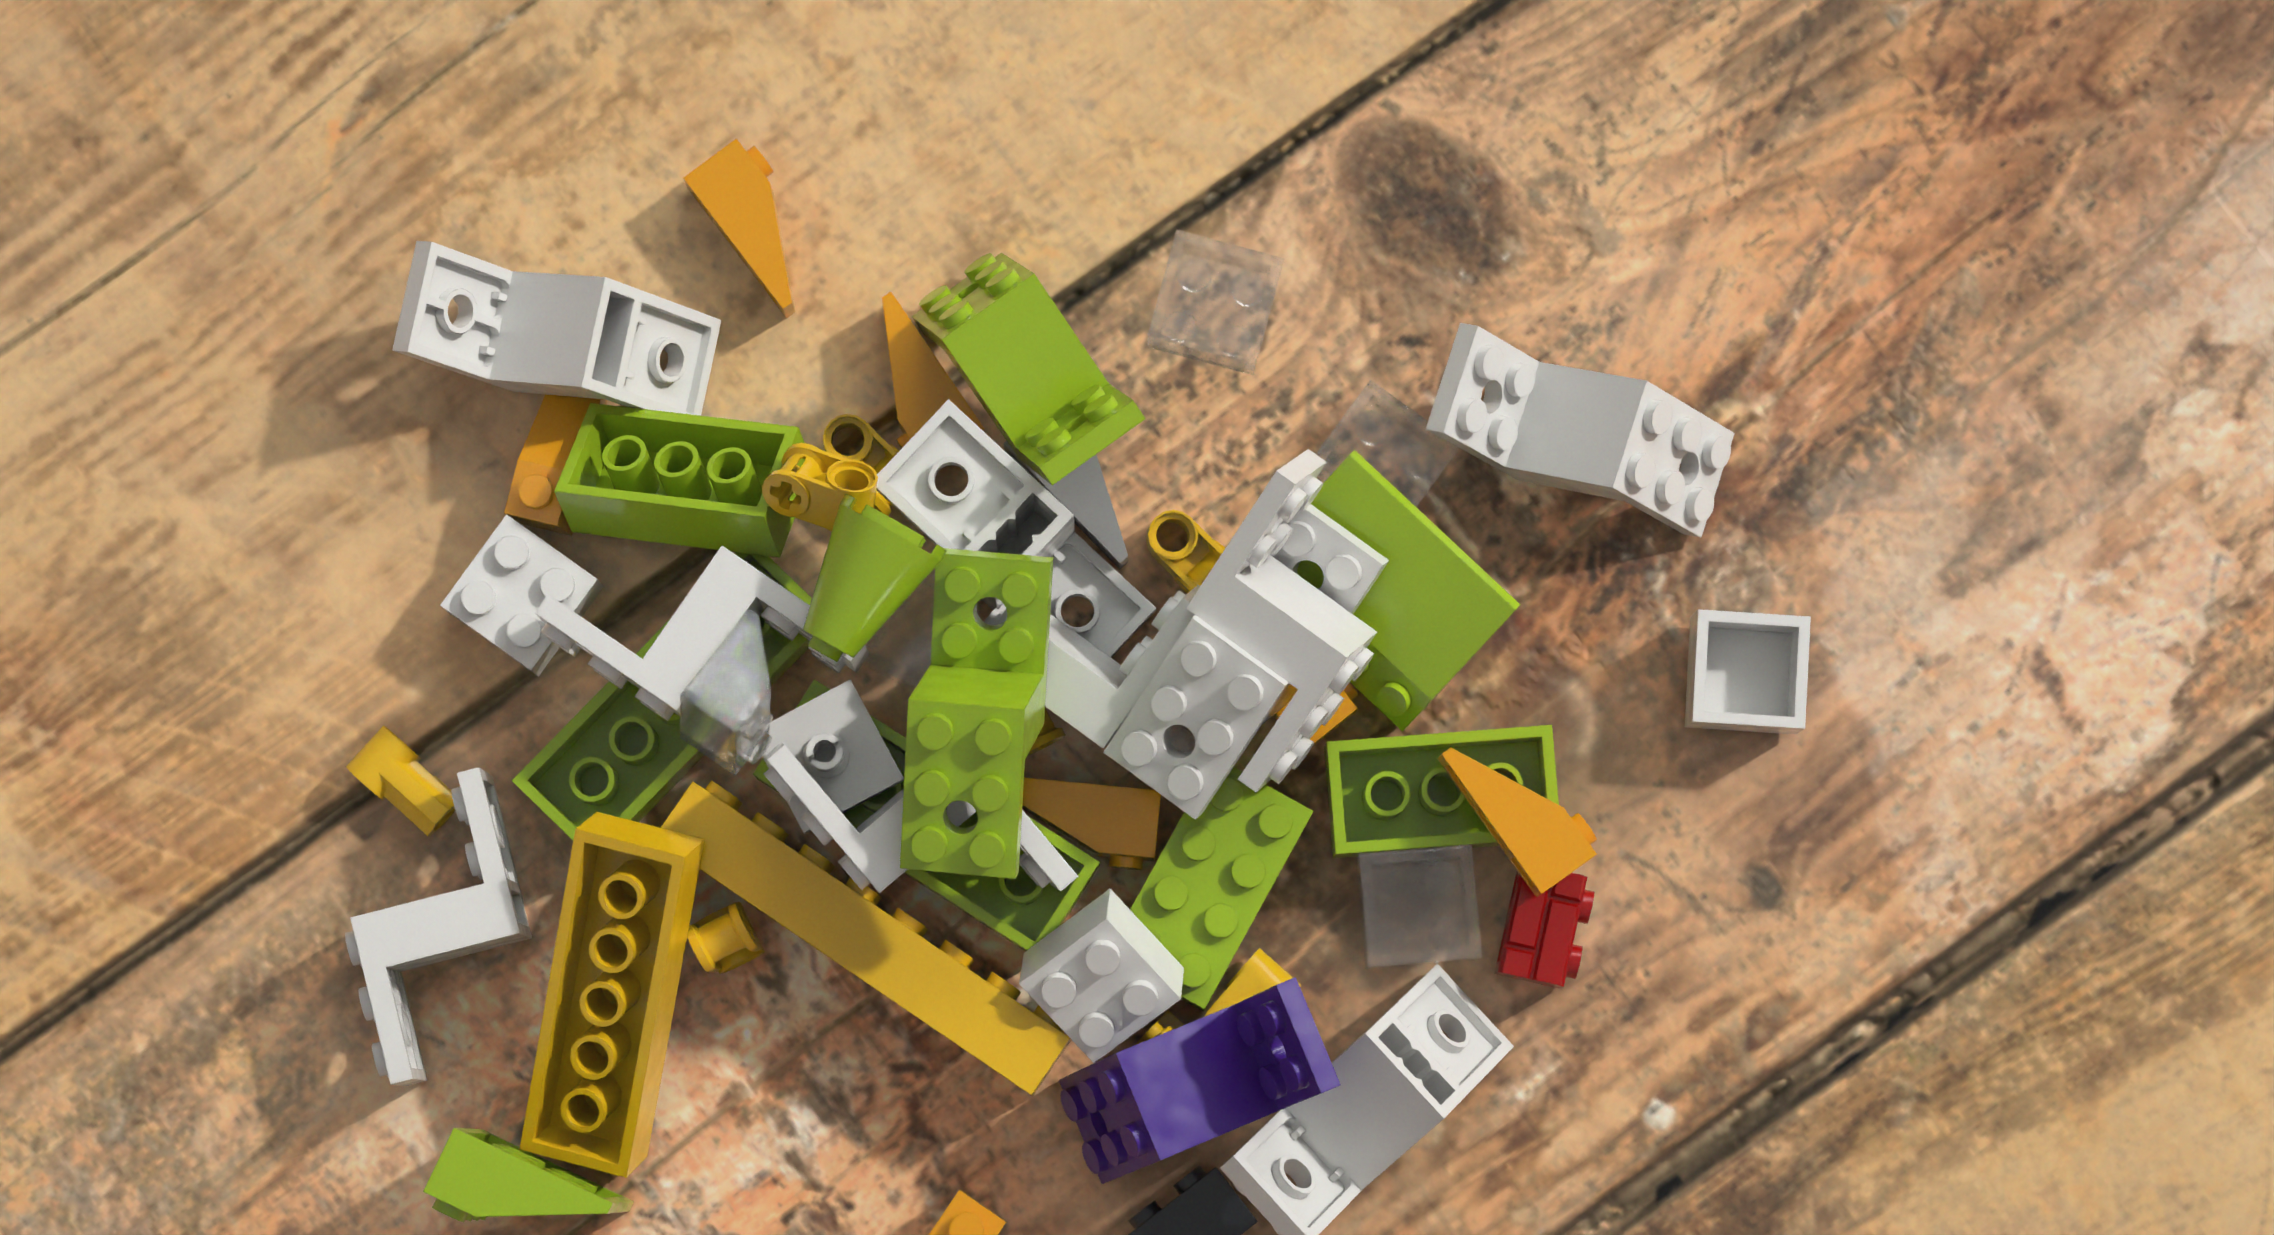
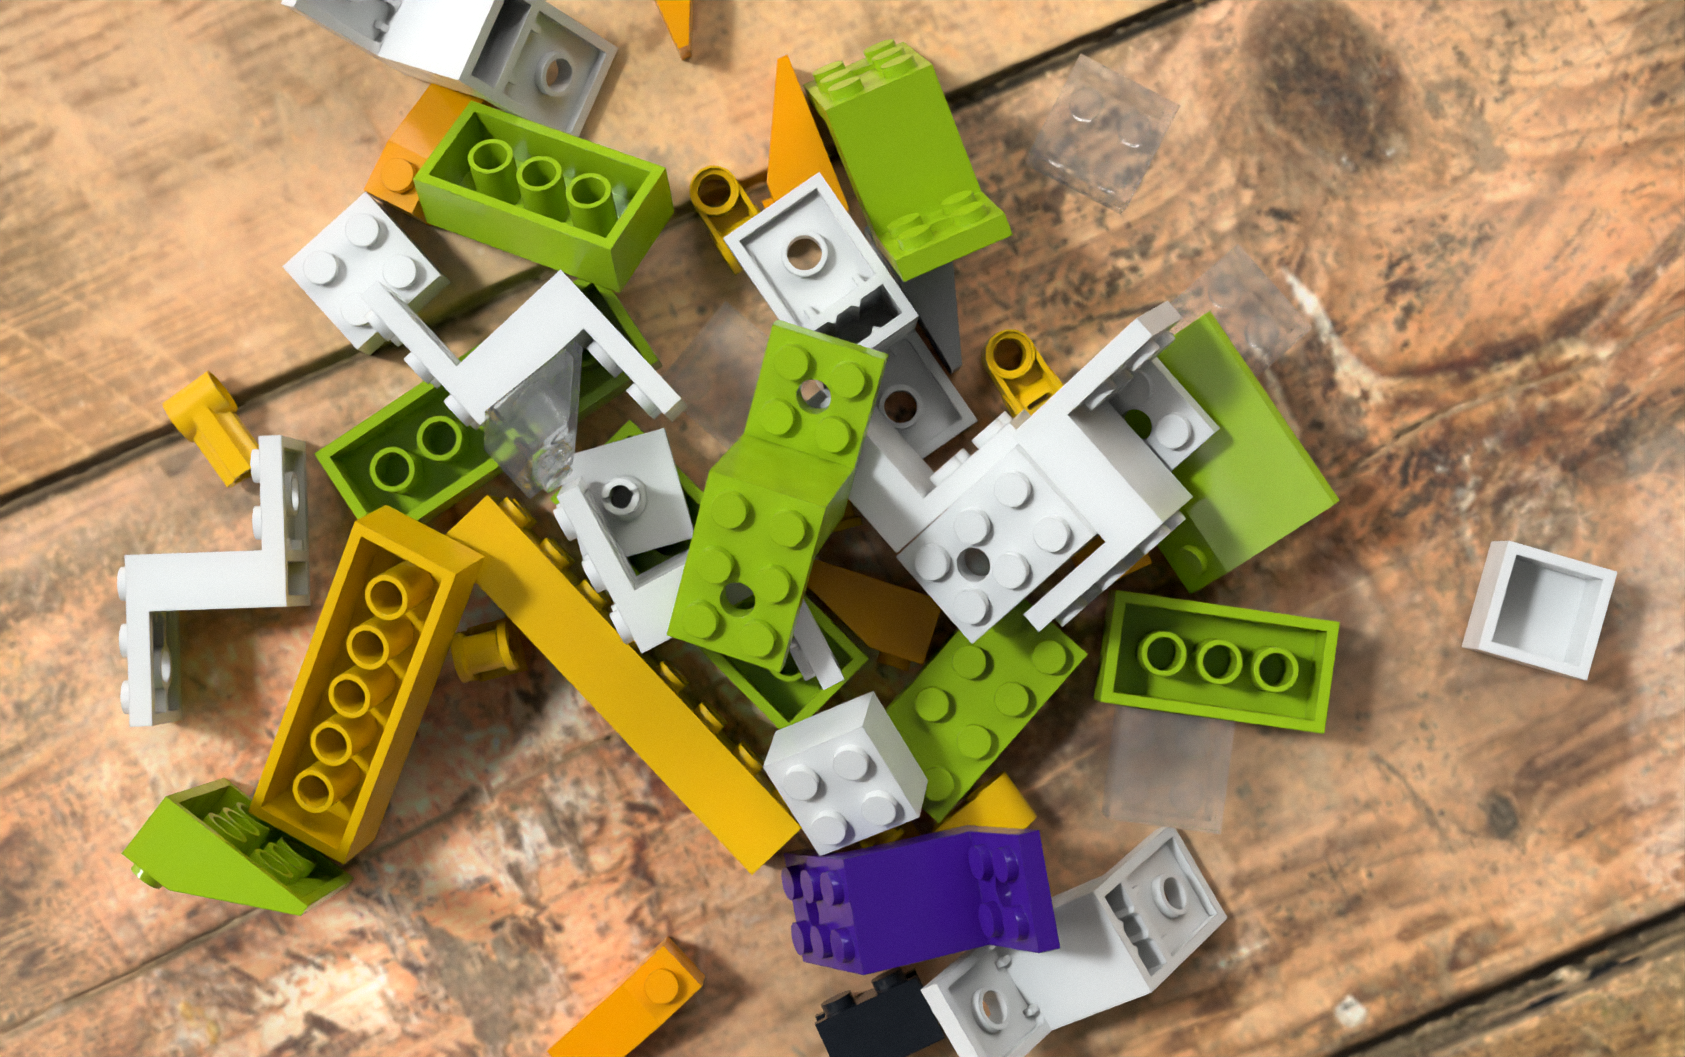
camera: 15 degrees right, 5 degrees up
(818, 485) = (679, 238): yellow piece -> none
(864, 578) = (693, 335): lime cone -> none
(1528, 827) = (1299, 725): light orange slope -> none
(1542, 931) = (1283, 810): red brick -> none
(1580, 430) = (1431, 337): white bracket -> none

